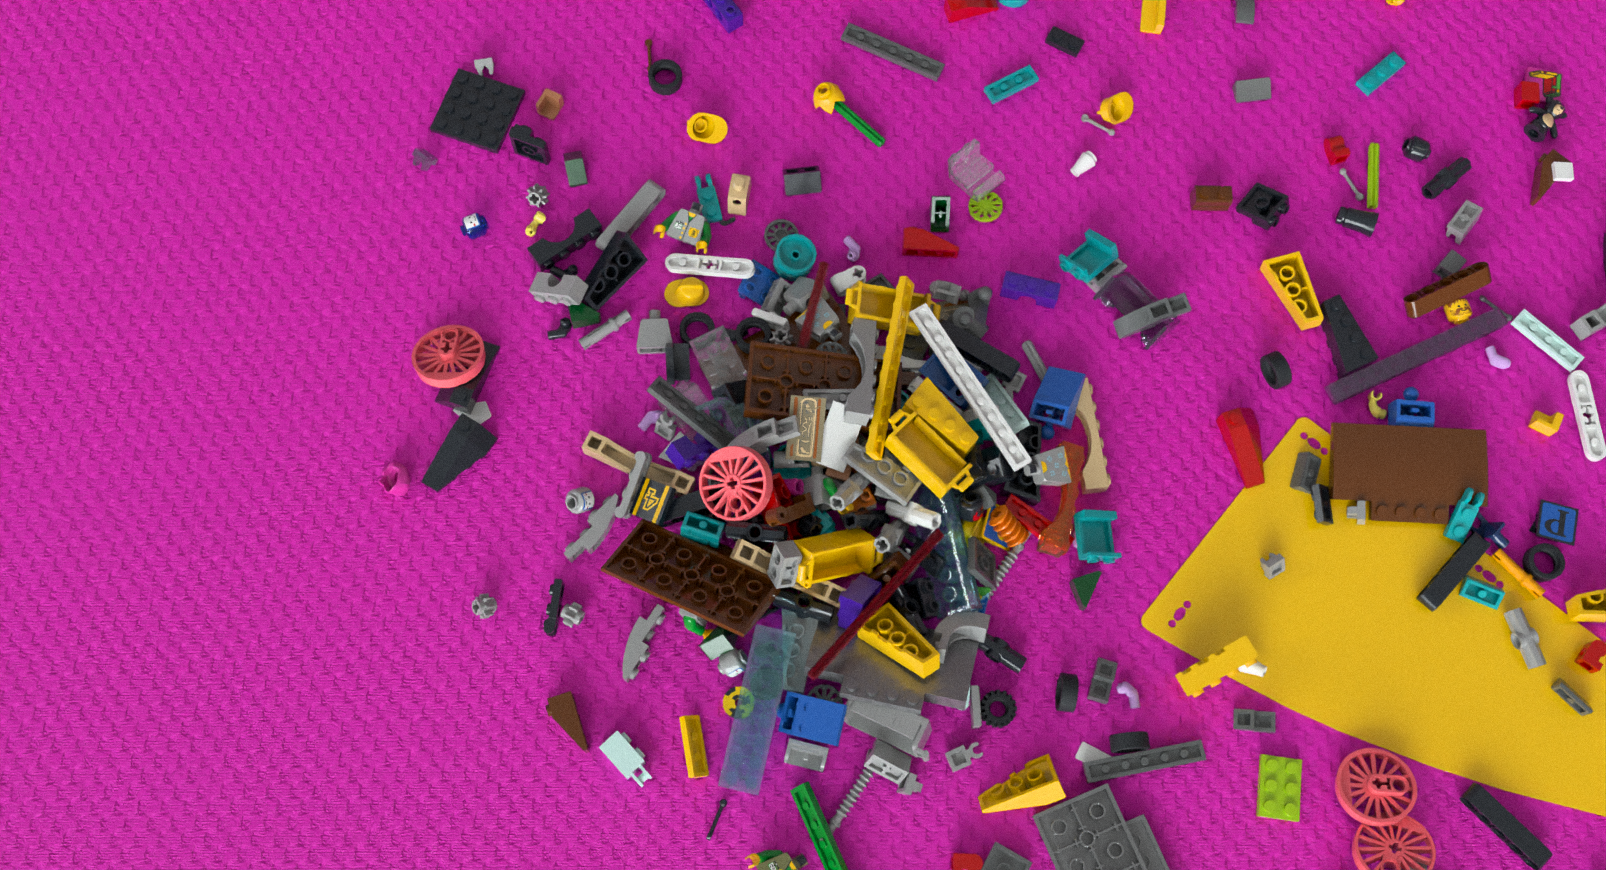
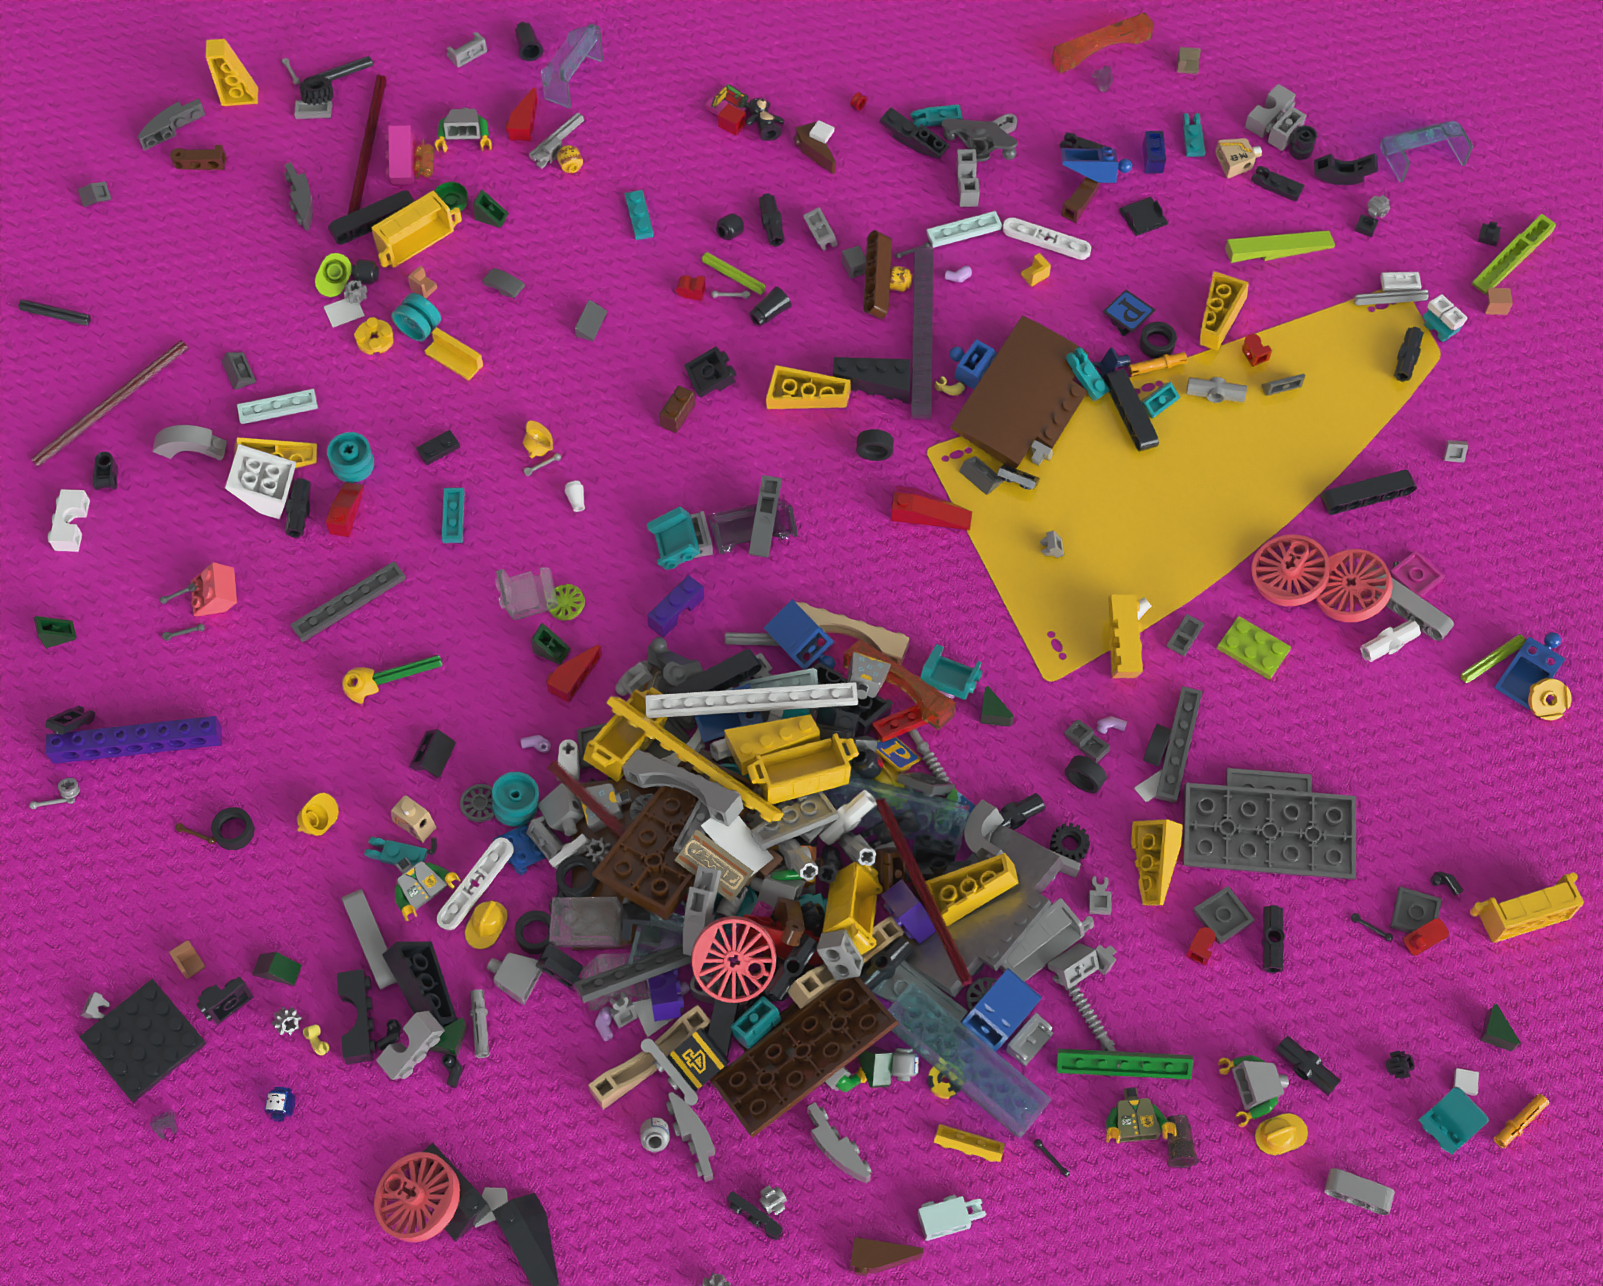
camera: 60 degrees left, 10 degrees down
(1008, 526) = (902, 742): orange piece -> none

